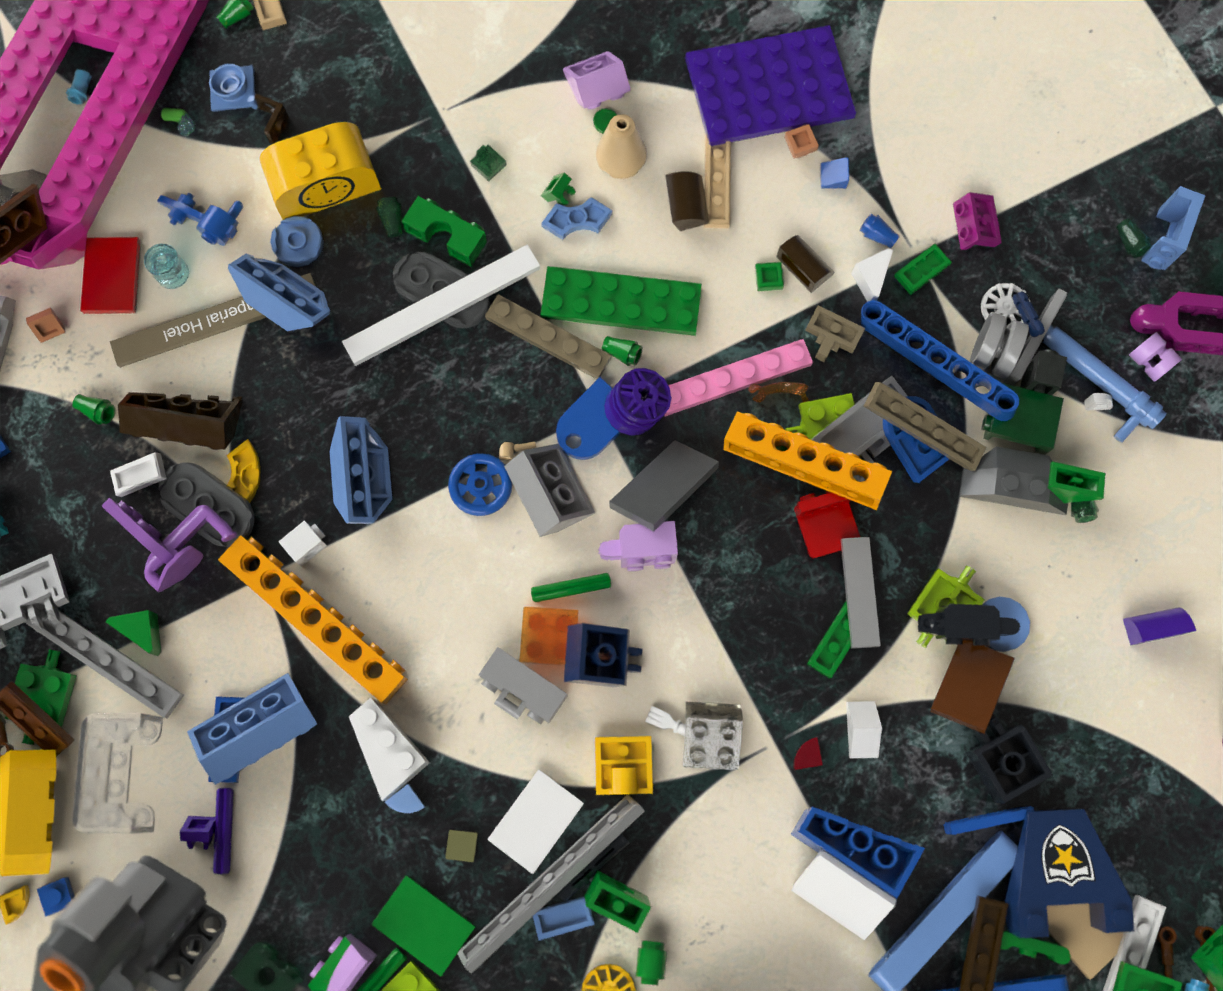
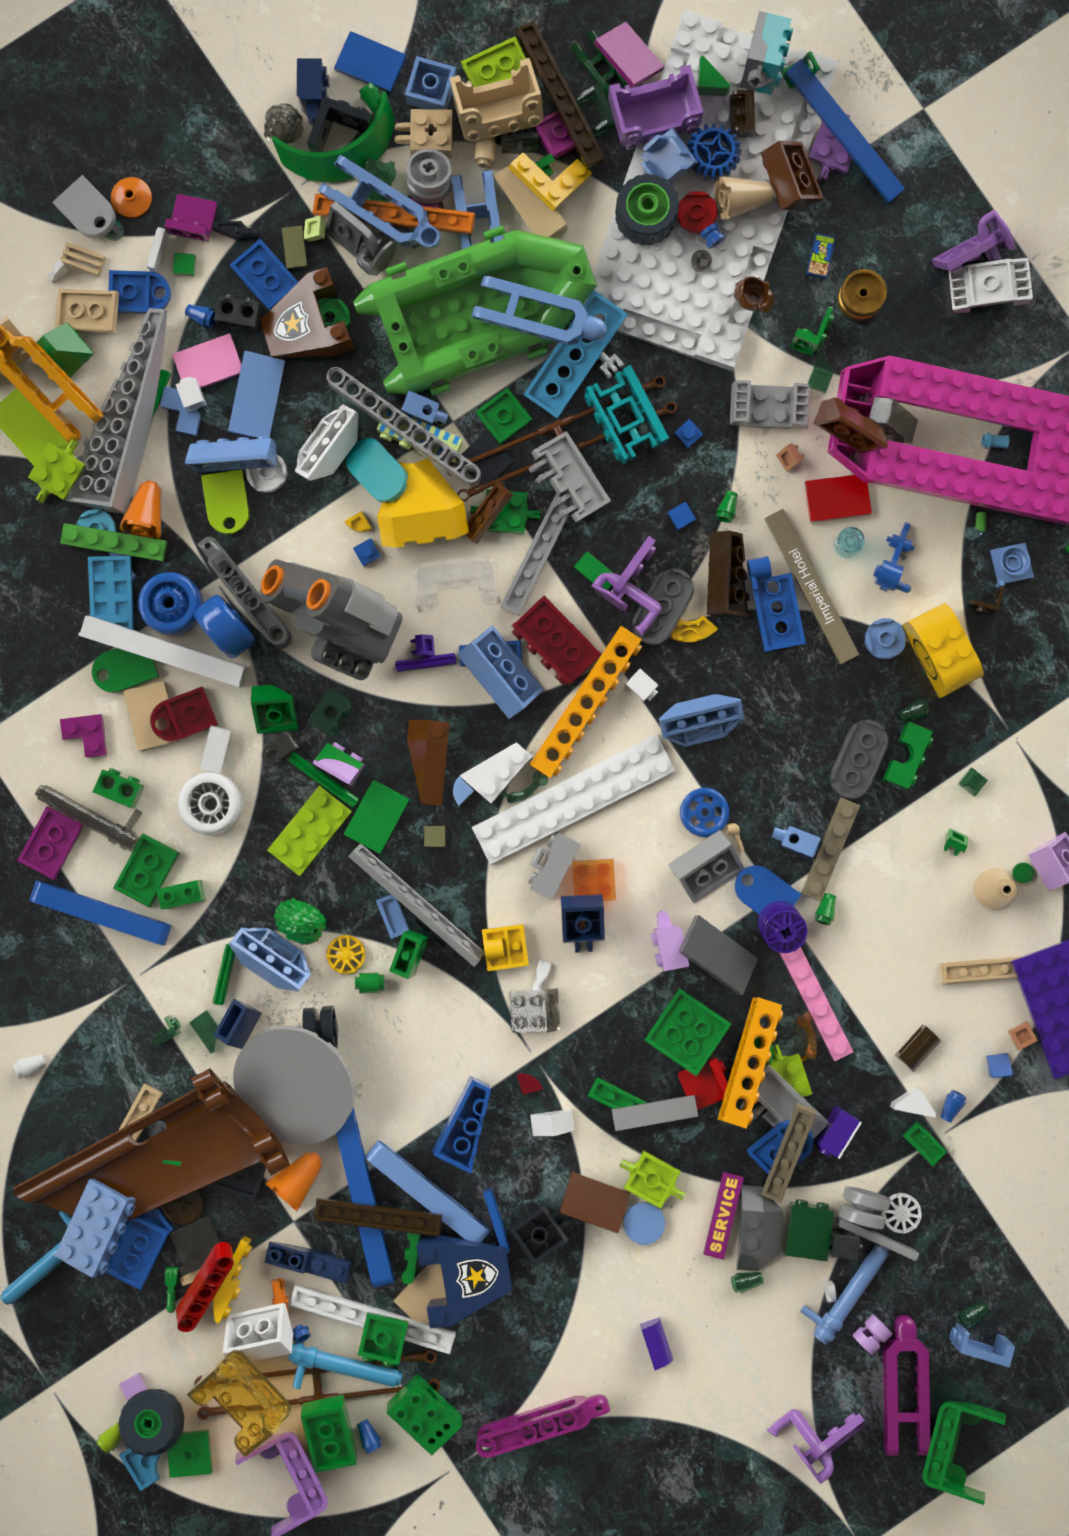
camera: 85 degrees right, 10 degrees up
(94, 467) = (681, 516): none -> blue tile
(138, 474) = (679, 551): white tile -> none
(138, 592) = (592, 568): none -> green tile
(140, 628) = (562, 576): green slope -> none
(188, 378) = (760, 575): none -> blue hinge
(225, 649) = (555, 641): none -> dark red bracket
(278, 292) = (835, 637): medium blue wedge -> none
(345, 840) = (428, 752): none -> reddish brown wedge
(424, 724) = (521, 795): none -> clear green piece
(439, 654) = (573, 799): none -> white plate
(441, 305) = (844, 763): white tile -> none
(535, 360) = (807, 843): none -> medium blue torso
(535, 821) = (458, 887): white tile -> none
(570, 587) = (632, 891): green axle -> none
(588, 216) = (931, 851): medium blue tile -> none
(621, 301) = (867, 903): green plate -> none
(687, 200) = (959, 947): dark brown brick -> none
(760, 537) = (687, 1032): none -> green plate
(769, 276) = (903, 1020): green tile -> none
(833, 332) = (861, 1075): dark tan hinge -> none
(843, 894) = (431, 1117): white tile -> none
(905, 363) = (838, 1133): none -> dark purple piece
(944, 371) = (838, 1166): blue beam -> none
(967, 622) = (640, 1195): black hinge -> none
(976, 221) = (972, 1185): magenta bracket -> none
(997, 522) = (723, 1215): none -> magenta tile
(1028, 314) = (893, 1230): dark blue axle -> none
(1075, 483) = (758, 1273): green slope -> none

